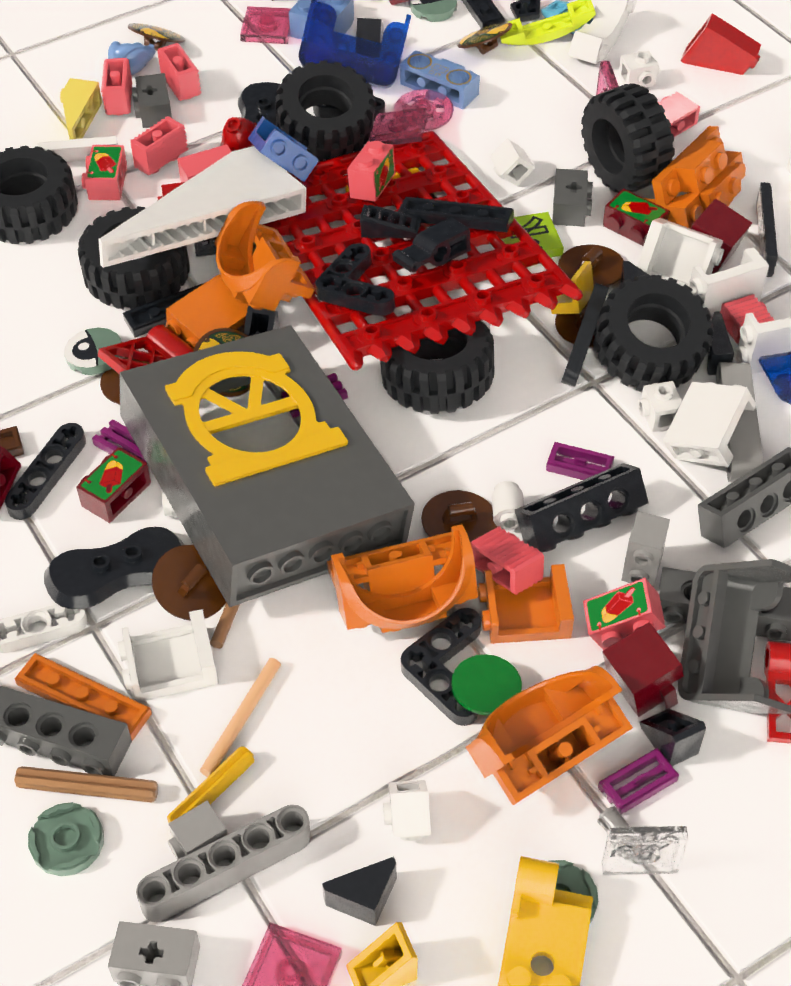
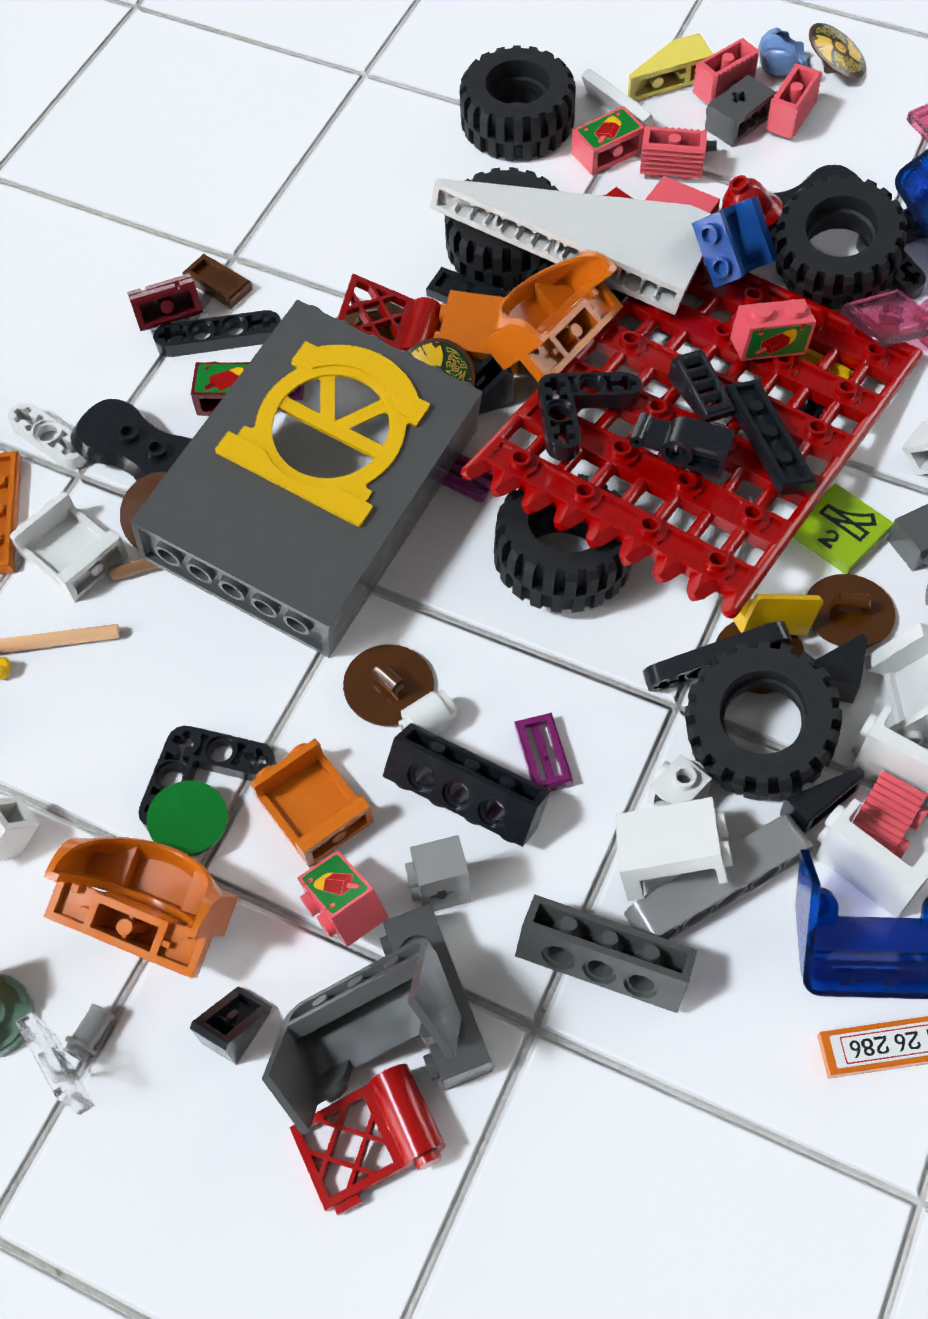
camera: 60 degrees right, 10 degrees up
(83, 348) = (384, 269): tile -> none
(402, 581) = (262, 681): orange piece -> none
(509, 559) = (346, 751): coral brick -> none
(615, 796) = (131, 1005): magenta tile -> none
(644, 669) = (276, 952): dark red plate -> none

